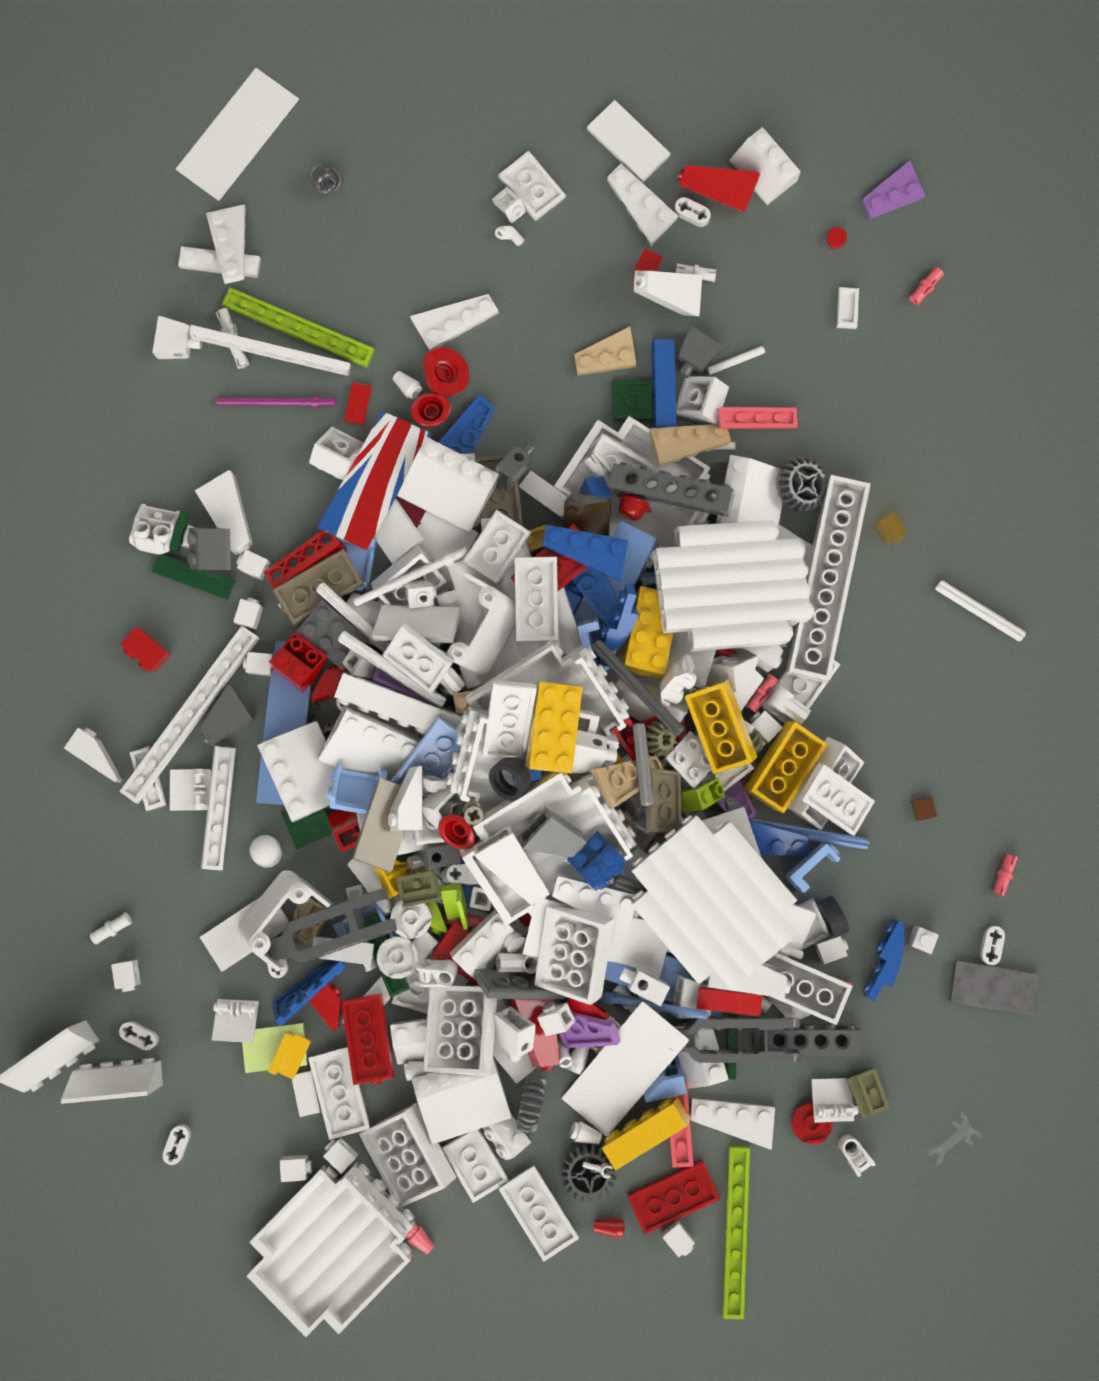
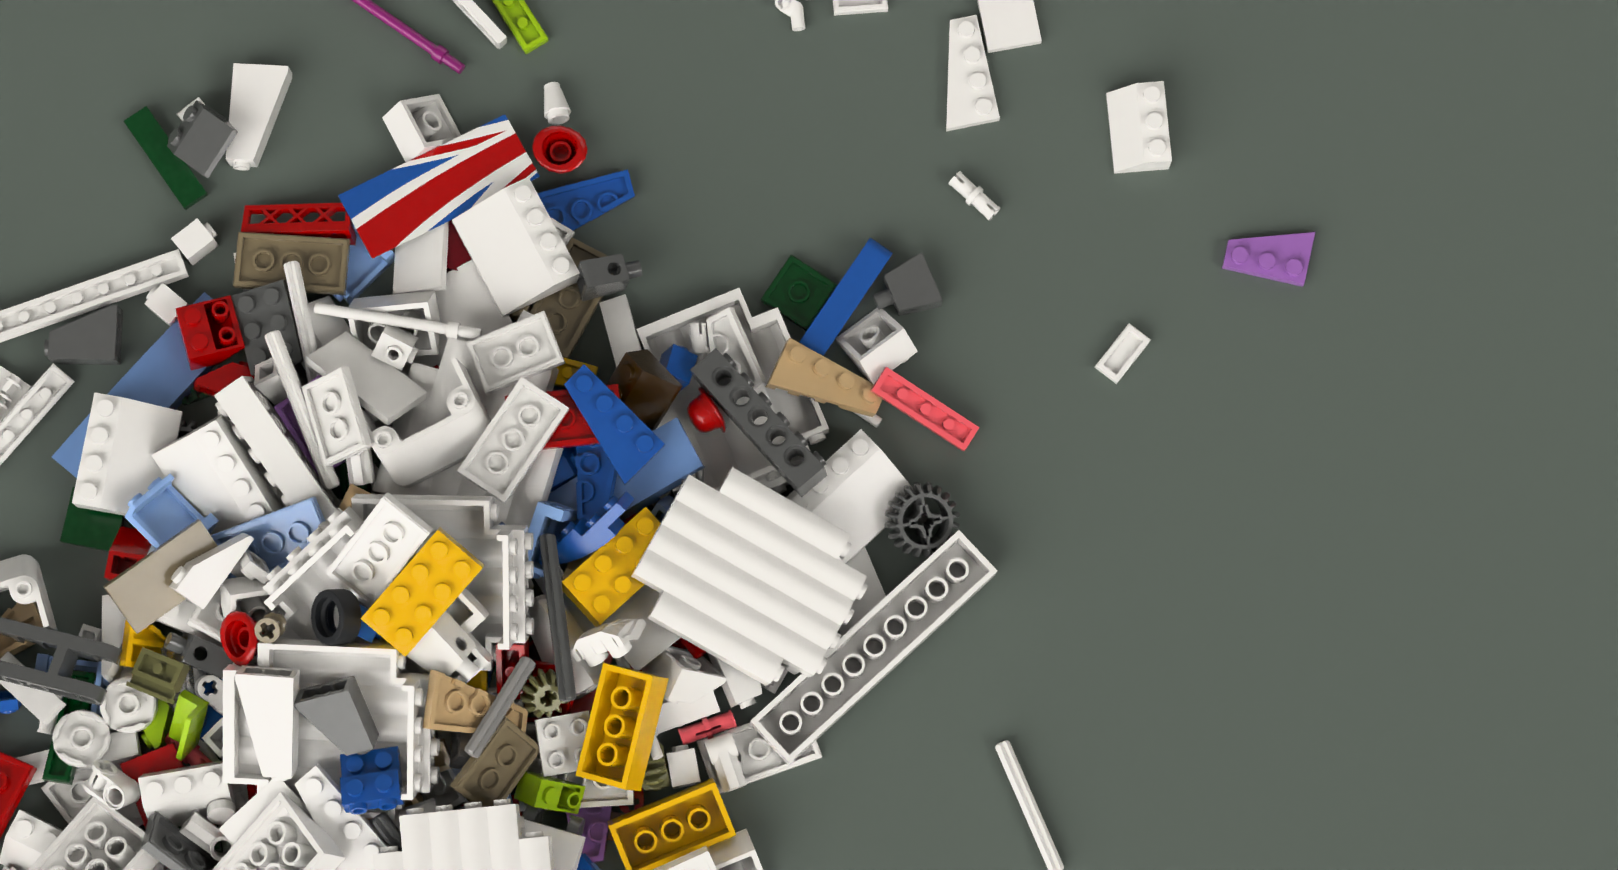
camera: 35 degrees right, 5 degrees down
(144, 649) = (53, 203): red brick -> none
(153, 529) = (159, 75): white slope -> none
(179, 532) = (185, 97): dark green tile -> none
(253, 564) = (239, 189): white brick -> none
(265, 851) = (25, 520): white hair -> none
(358, 404) = (486, 88): red tile -> none
(445, 371) = (608, 118): red hat -> none
(450, 321) = (653, 64): white wing -> none
(607, 355) = (808, 222): tan wing -> none
(648, 262) = (916, 155): red brick -> none
(671, 290) = (926, 197): white slope -> none
(692, 212) = (1025, 121): white beam -> none
(722, 185) = (1074, 119): red slope -> none
(735, 360) = (949, 326): white bar -> none
(836, 238) = (1166, 264): red tile -> none
(891, 529) = (990, 640): clear yellow brick -> none
(926, 286) = (1232, 389): coral pin -> none

